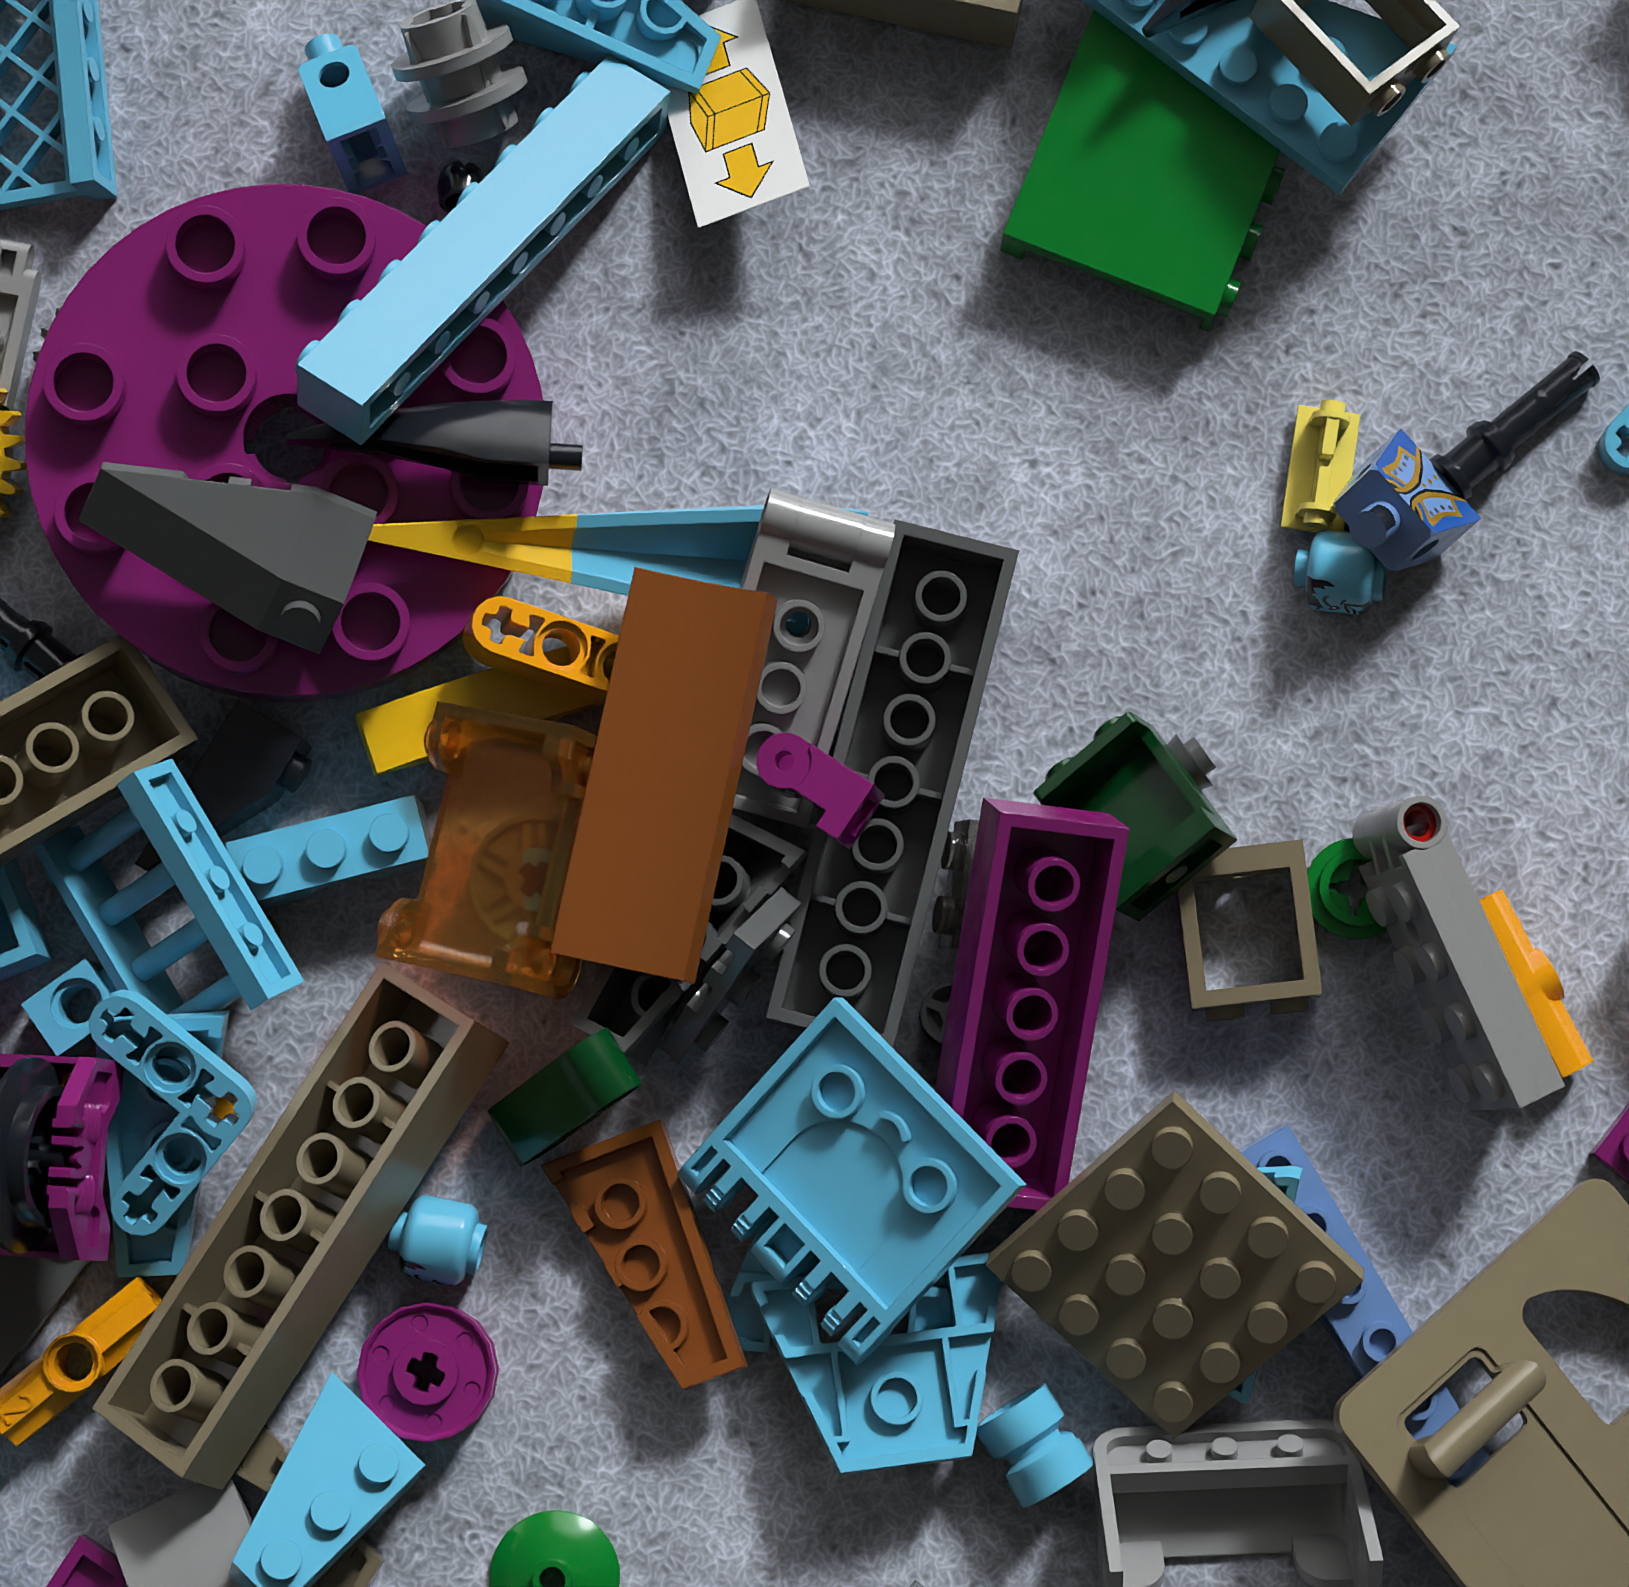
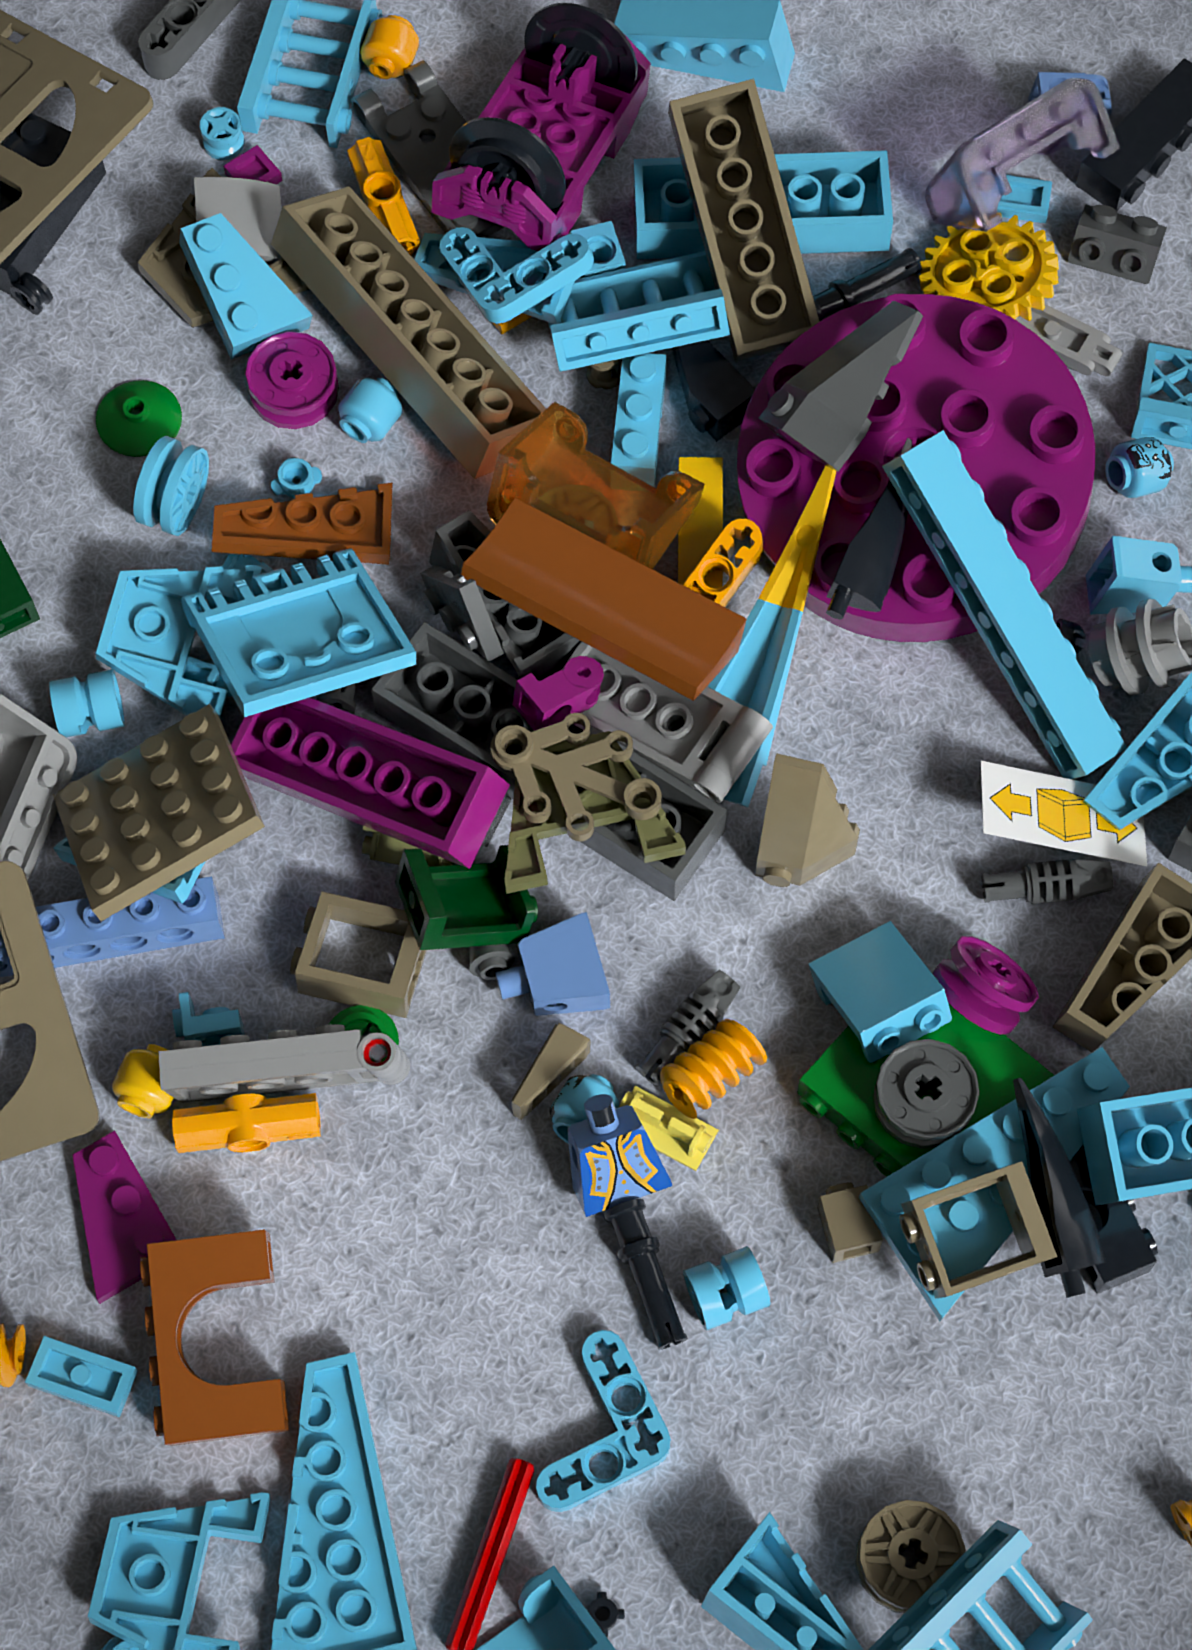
camera: 110 degrees right, 15 degrees down
(171, 162) = (1139, 467): none -> medium azure head
(564, 1096) = (425, 494): dark green beam -> none
(564, 1313) = (292, 469): none -> medium azure plate
(672, 1465) = (171, 485): none -> medium azure wheel
(819, 106) = (1050, 881): none -> dark grey hinge
(893, 426) = (803, 824): none -> dark tan wedge
(939, 726) = (571, 770): none -> dark tan plant
(949, 716) = (525, 861): none -> olive wing
(1007, 128) = (986, 985): none -> magenta wheel
(1063, 251) = (881, 991): none -> medium azure panel
(1171, 670) = (559, 970): none -> medium blue torso
(1179, 483) = (689, 1022): none -> dark grey hinge
(1195, 112) = (923, 1067): none -> dark grey wheel
(1232, 432) = (710, 1063): none -> light orange piece
(1295, 632) = (555, 1061): none -> dark tan slope
(1364, 210) = (847, 1223): none -> dark tan brick
(1416, 1080) = (209, 1026): none -> medium azure bracket
(1501, 321) = (743, 1282): none -> medium azure wheel
(1522, 1139) = (139, 1083): none -> yellow head

